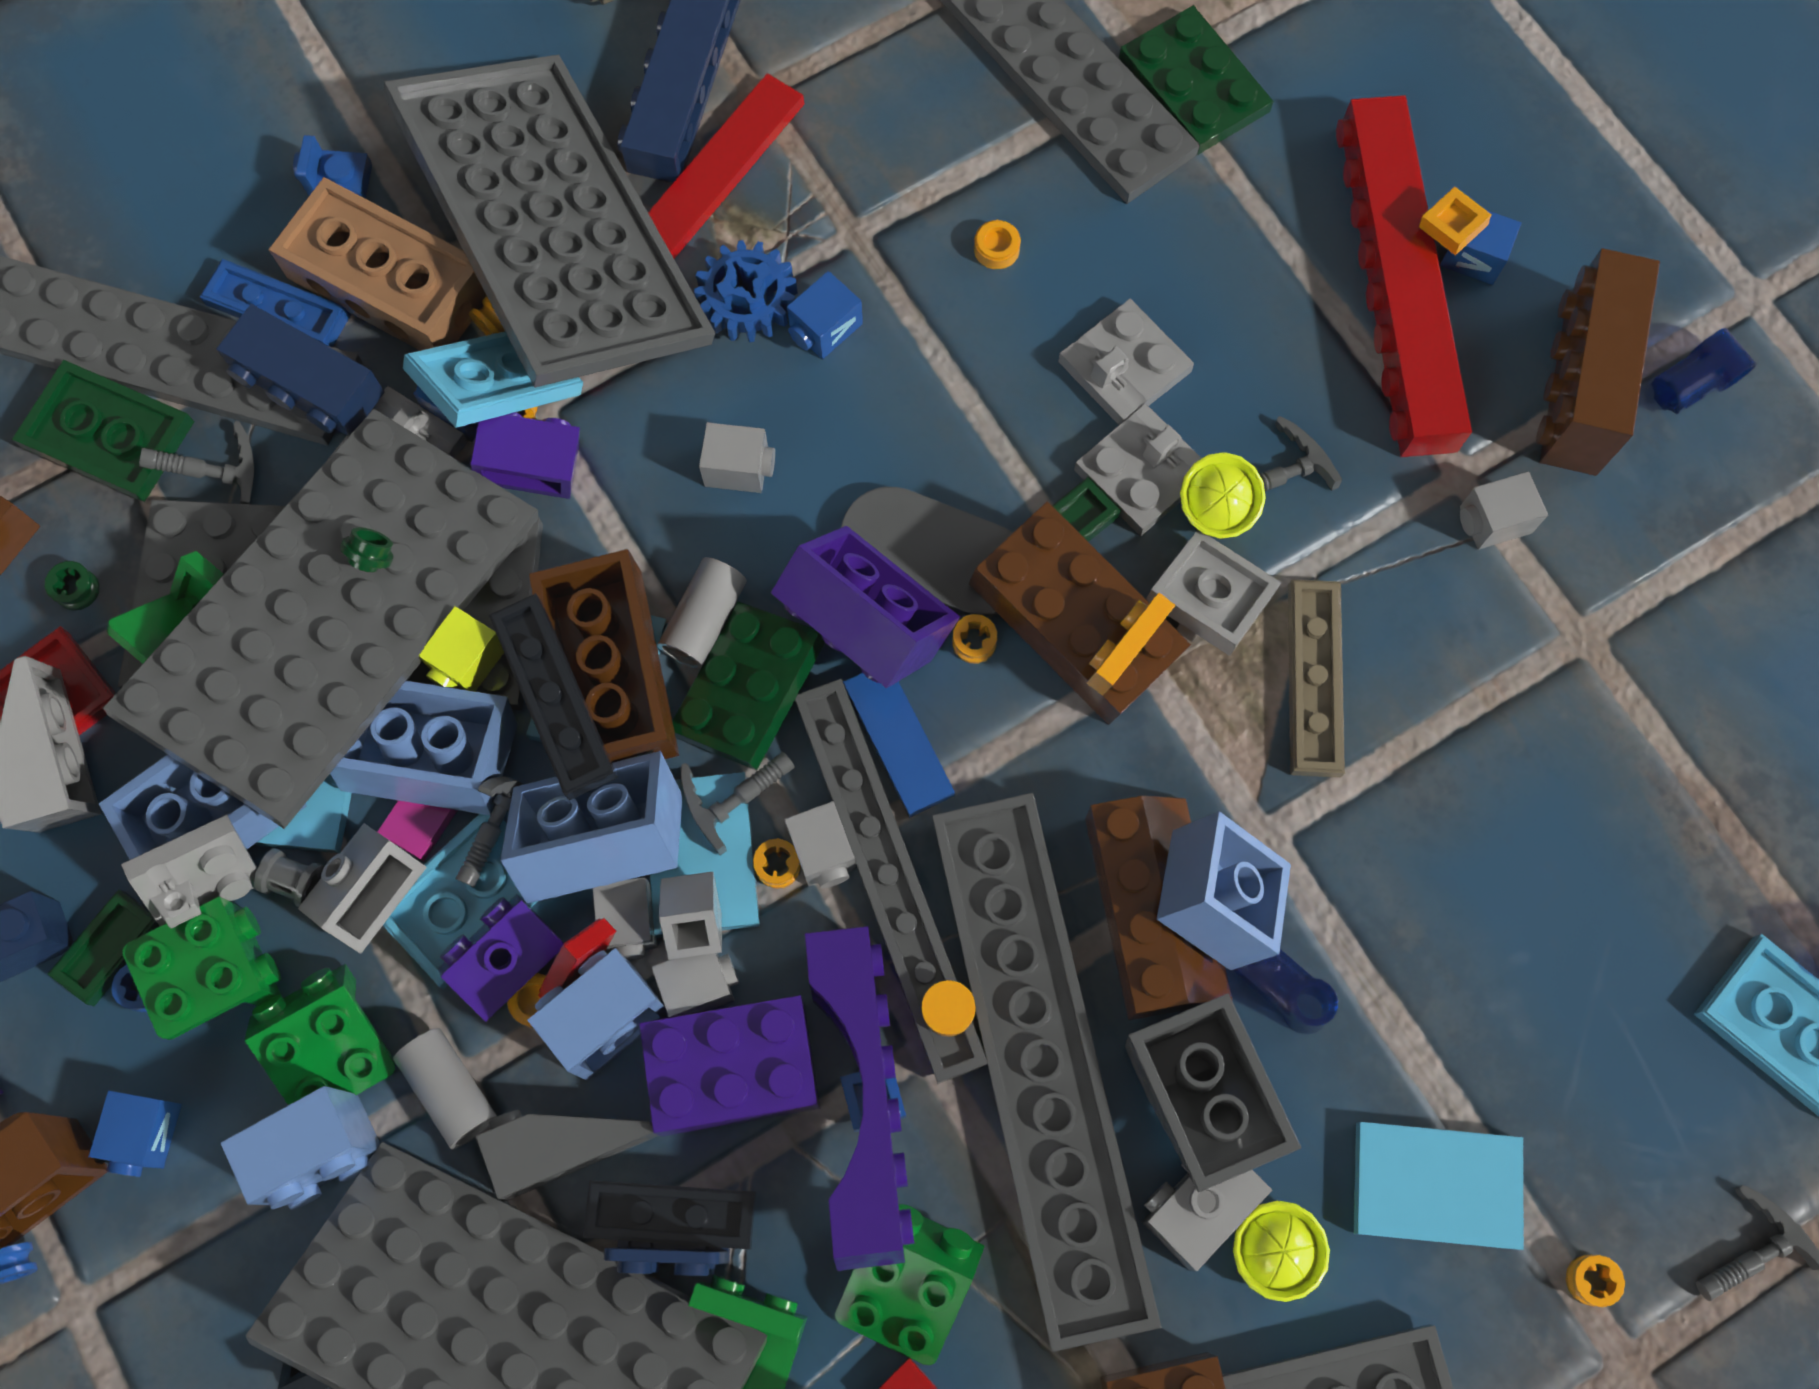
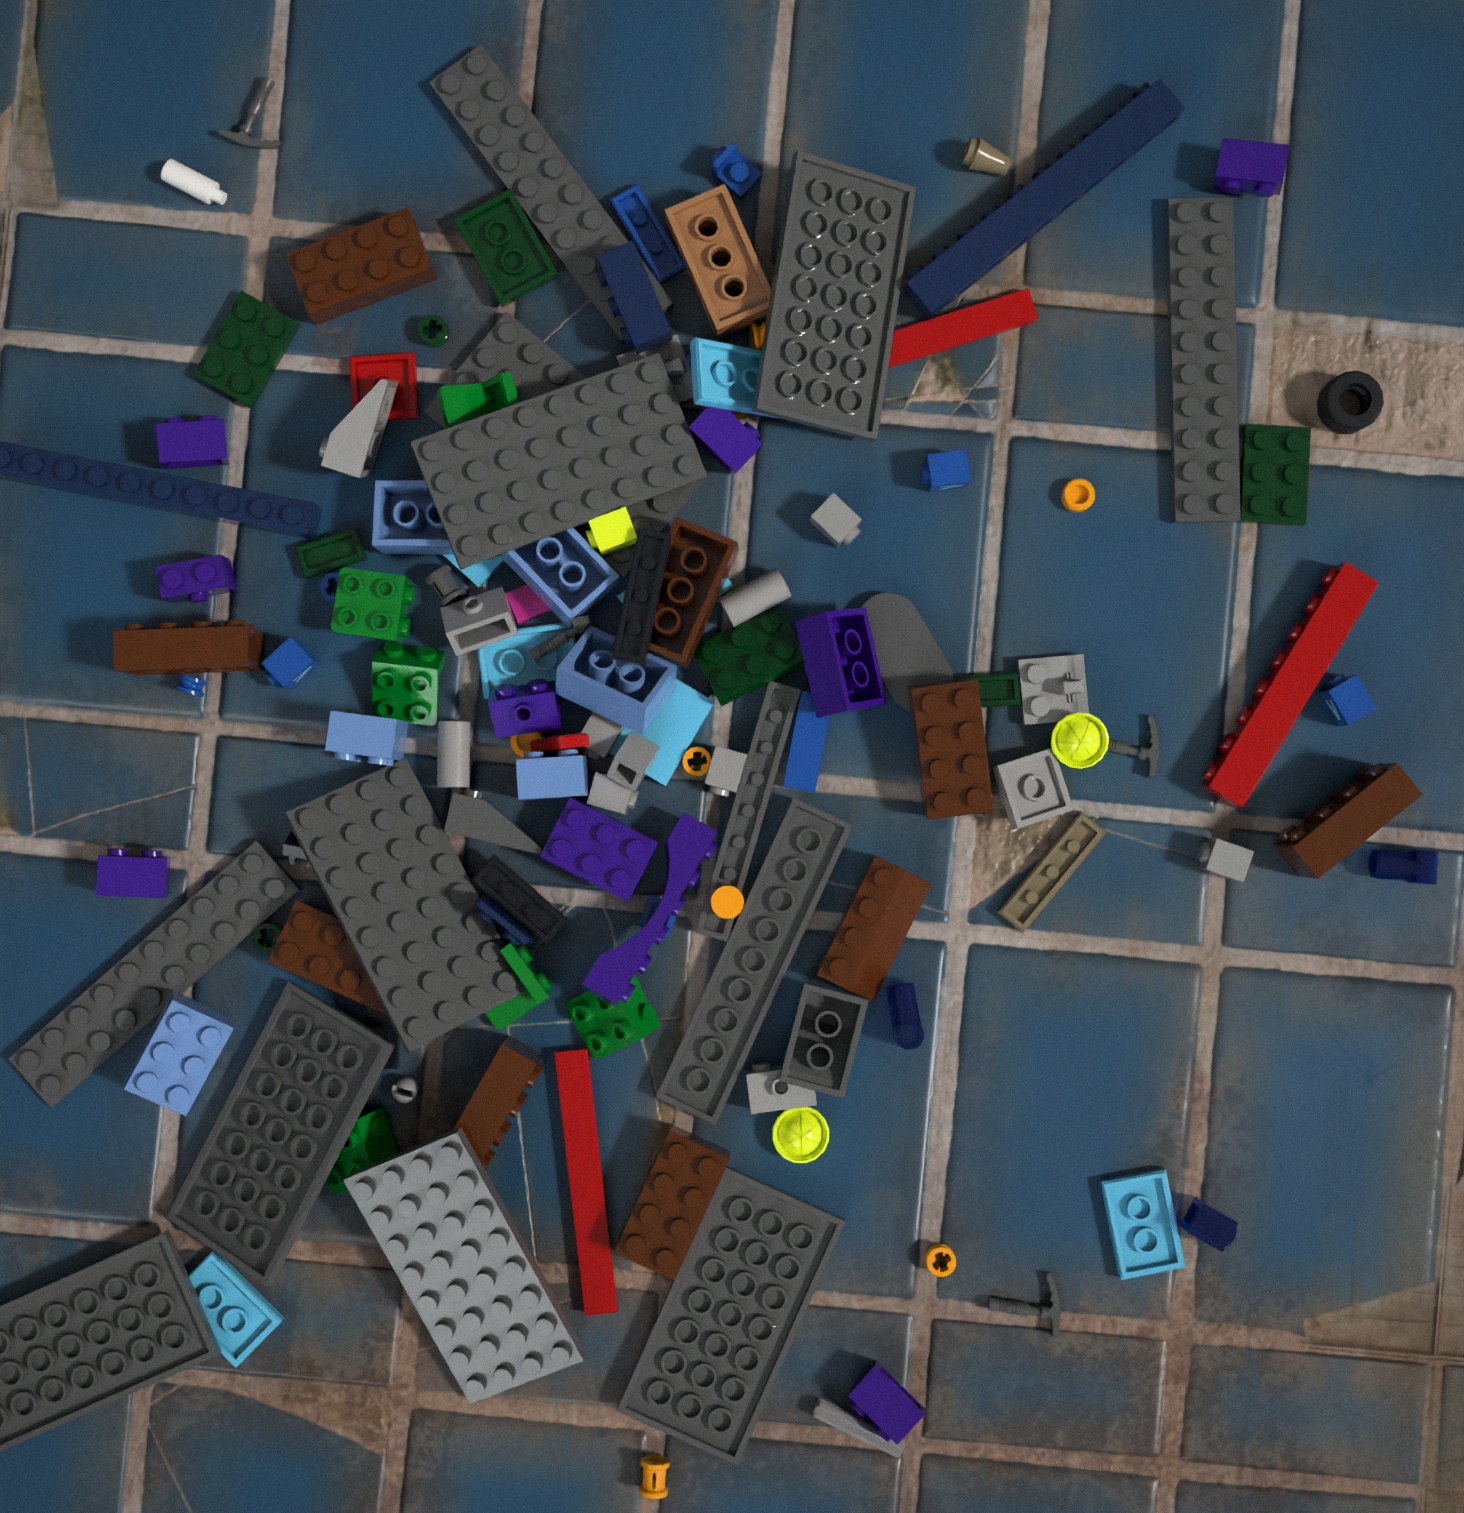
camera: 35 degrees right, 15 degrees up
(192, 872) = (400, 556): light grey hinge -> none
(198, 468) = (542, 311): dark grey piece -> none
(367, 549) = (600, 446): dark green plate -> none
(743, 793) = (705, 713): dark grey piece -> none
(759, 276) = (927, 423): blue gear -> none
(960, 632) = (891, 726): light orange bush -> none
(1125, 362) = (1093, 620): light grey hinge -> none
(1141, 625) = (970, 787): light orange plate -> none
(1224, 891) = (907, 949): medium blue brick -> none
(1439, 1186) = (902, 1162): medium azure tile -> none
(1455, 220) = (1336, 682): light orange plate -> none

